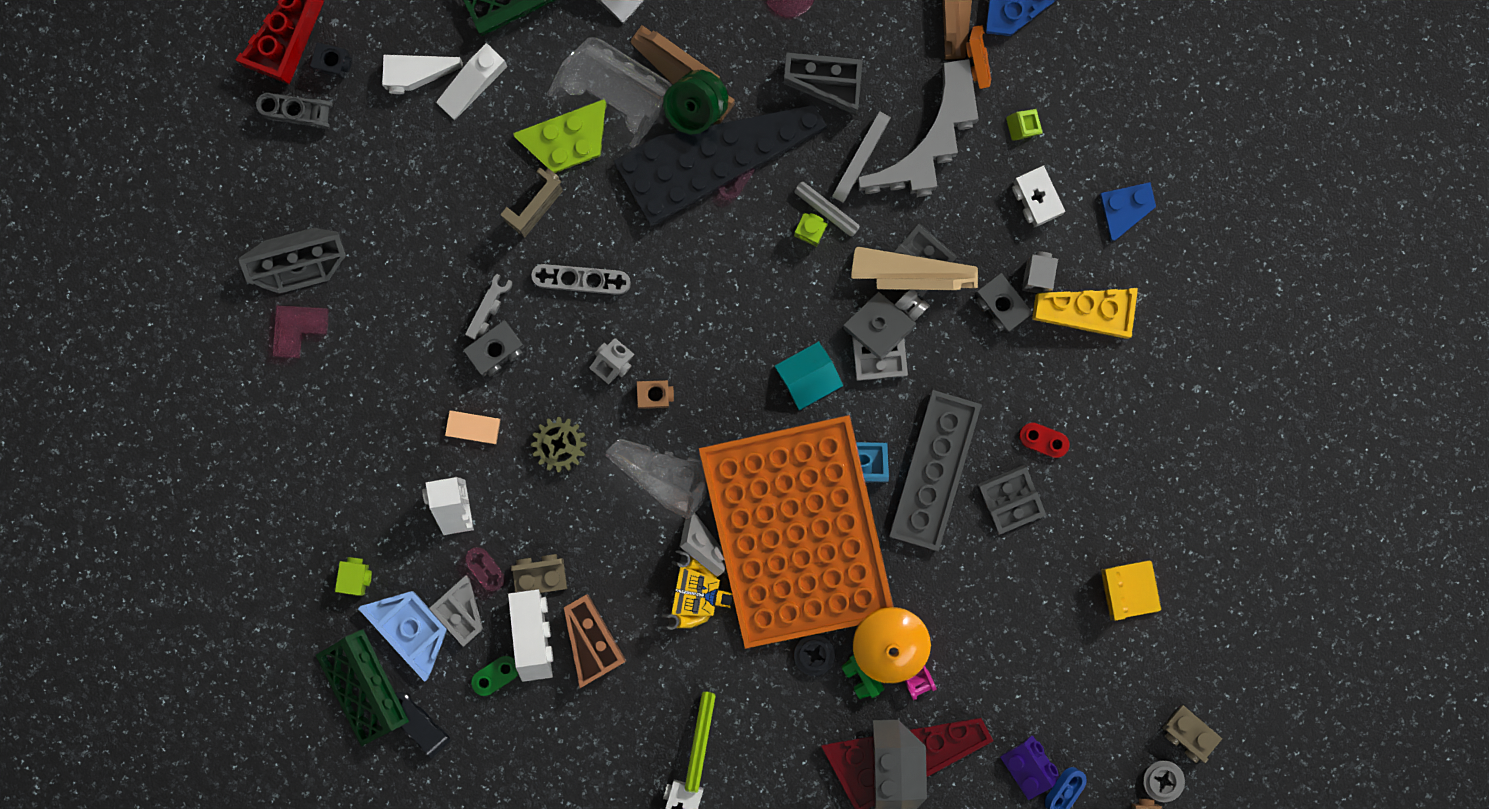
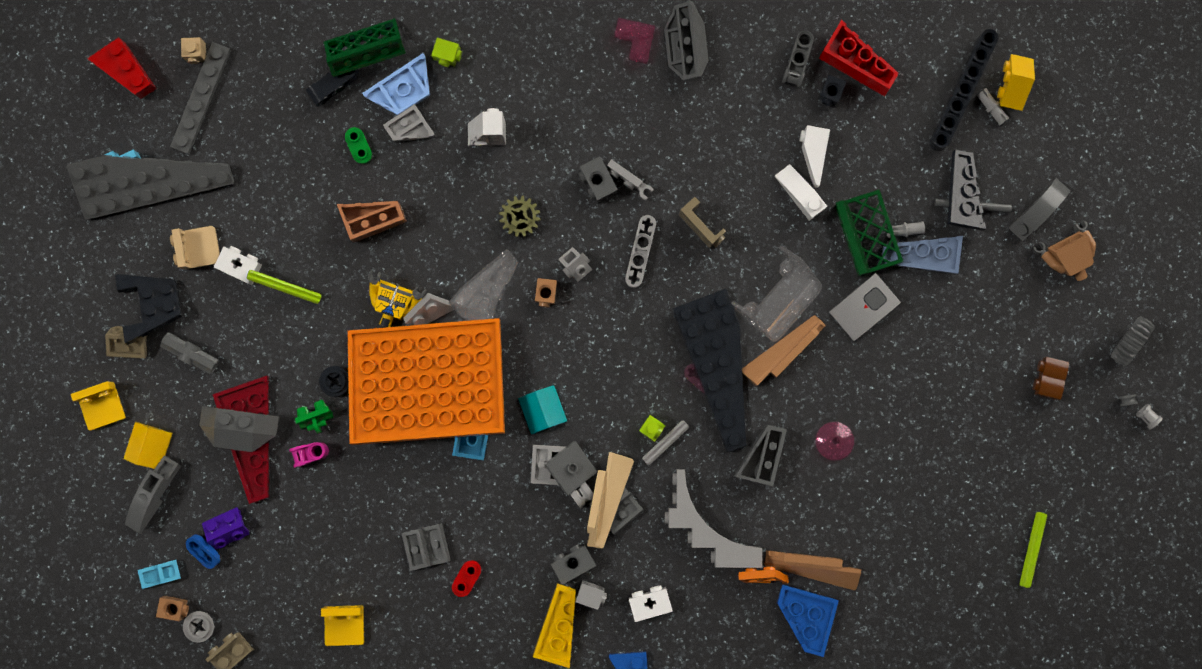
camera: 100 degrees right, 0 degrees up
(473, 427) = (543, 156): light nougat tile -> none
(490, 565) = (439, 153): clear pink beam -> none
(530, 635) = (382, 174): white wedge -> none
(543, 575) = (425, 188): dark tan bracket -> none
(567, 138) = (748, 257): lime wing -> none
(695, 101) = (759, 355): dark green wheel -> none
(861, 157) = (700, 474): light grey beam -> none
(887, 630) = (339, 442): light orange dish -> none
(935, 470) = (456, 492): dark grey plate -> none
(1024, 124) = (707, 602): lime slope -> none

